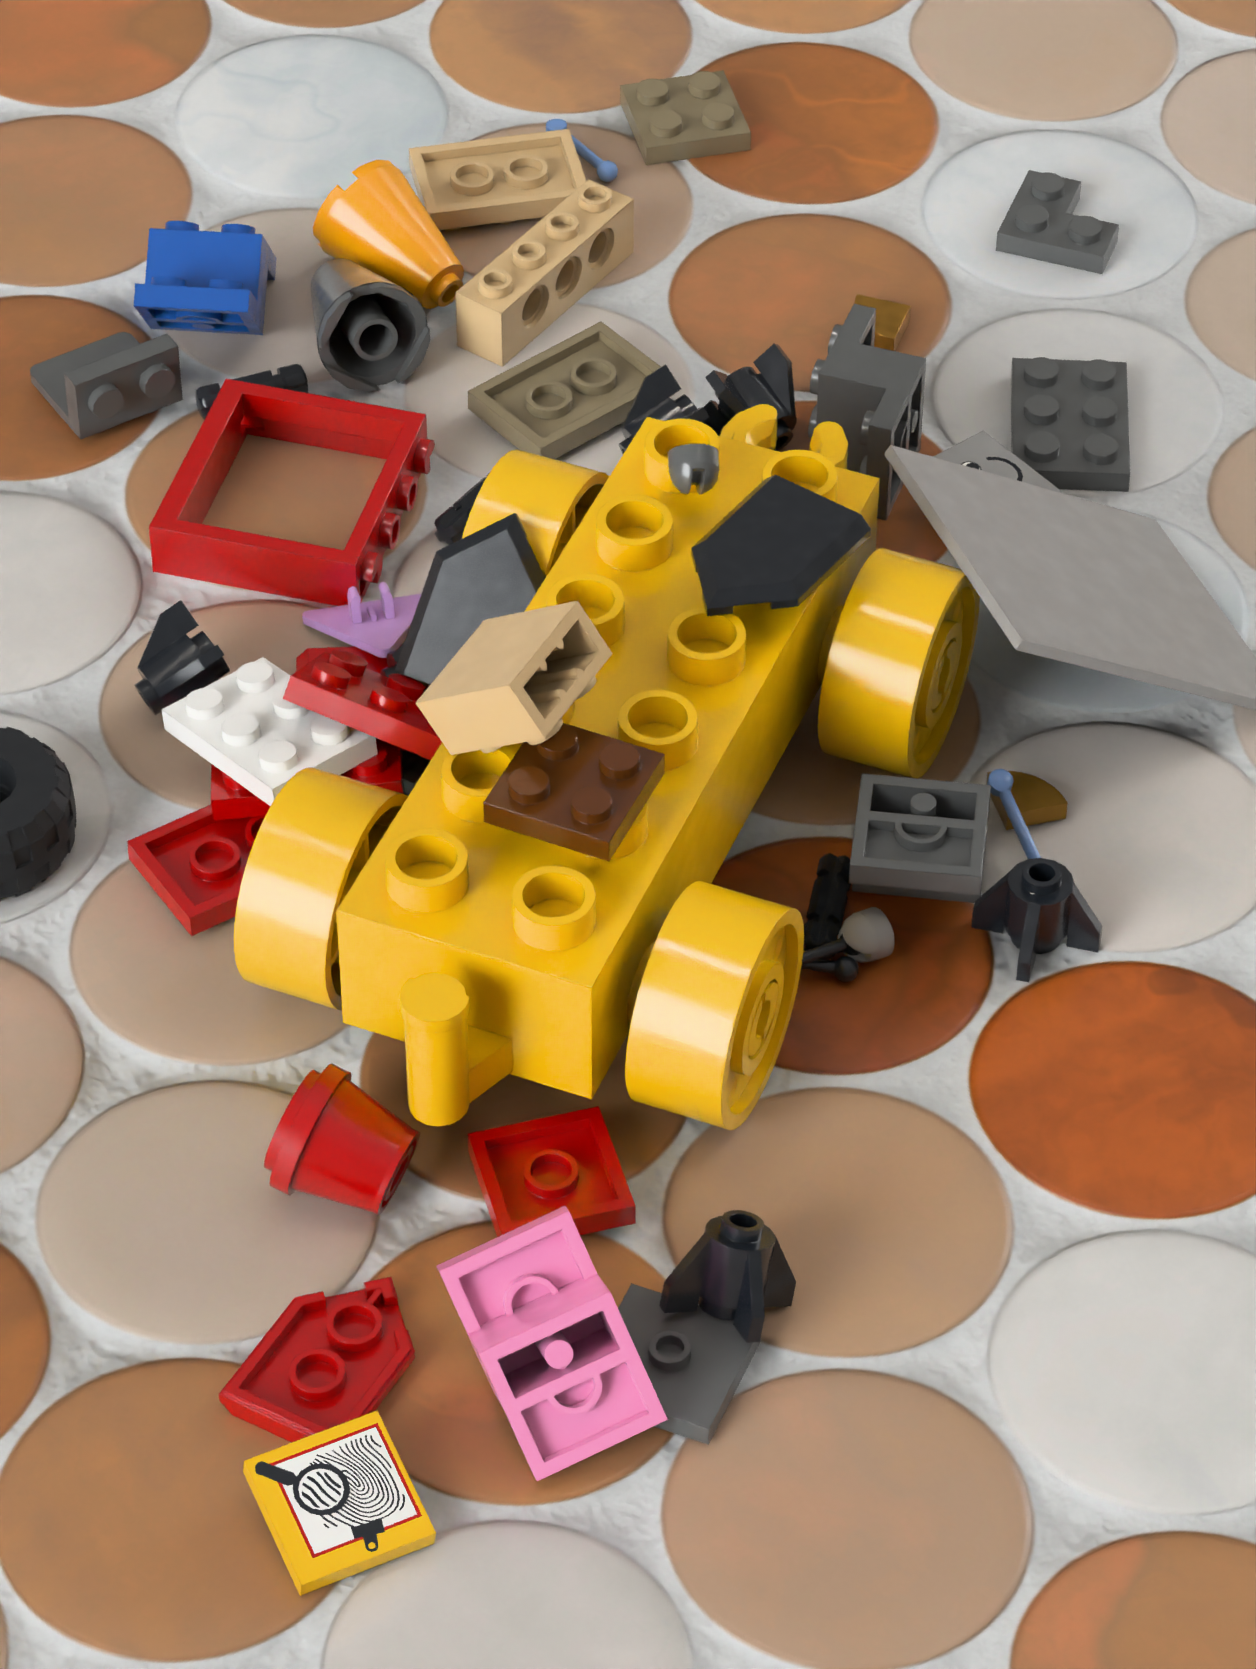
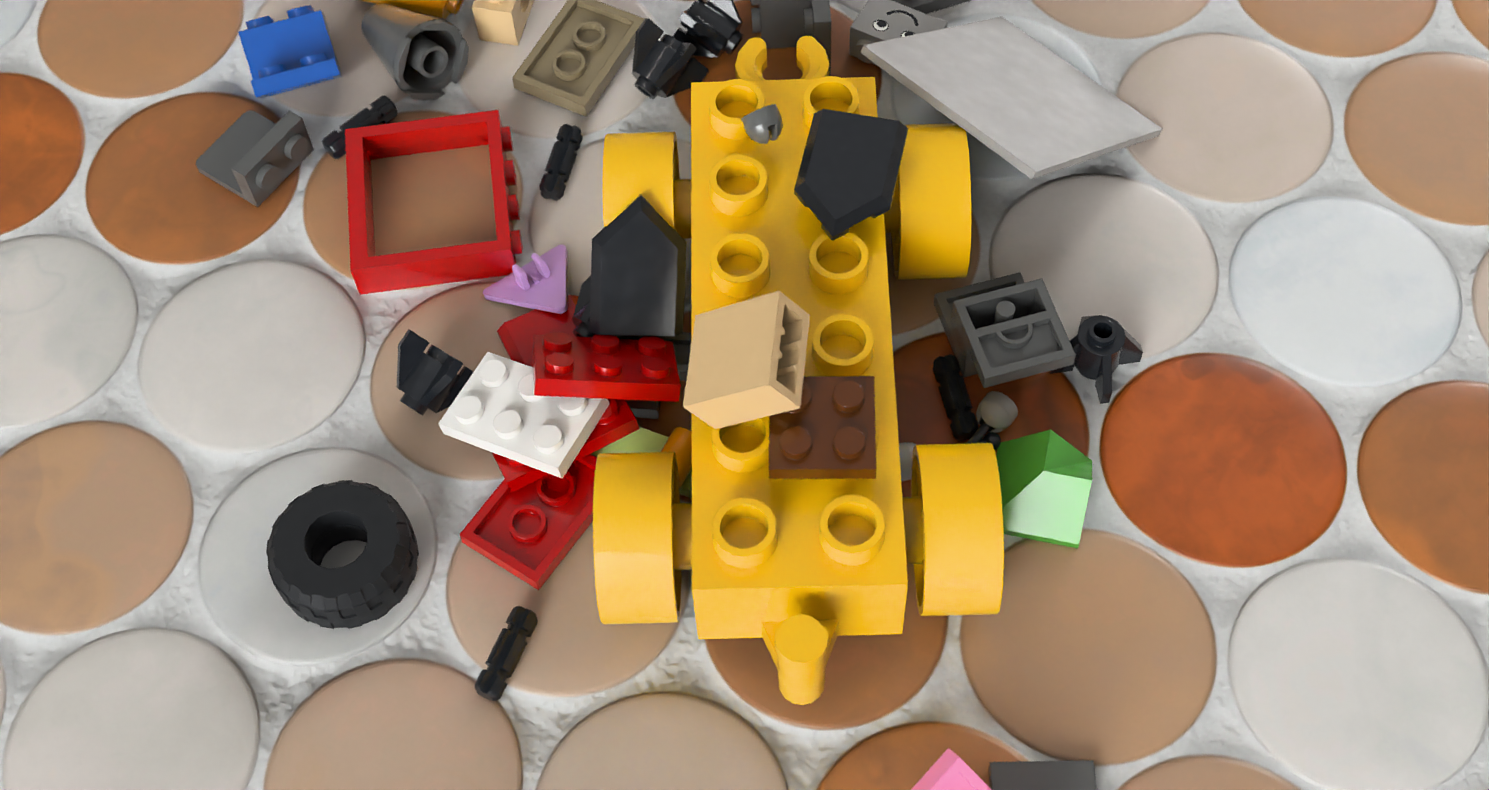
camera: 20 degrees left, 15 degrees up
(116, 983) = (506, 653): none -> black axle
(339, 1144) = (742, 737): red piece -> none
(550, 1165) = (891, 697): red plate -> none
(732, 1274) = (1062, 735): black brick -> none
(876, 1037) = (1044, 488): none -> bright green slope
(1001, 784) = (1023, 261): medium blue hinge -> none
(1035, 798) = (1035, 261): pearl gold tile -> none

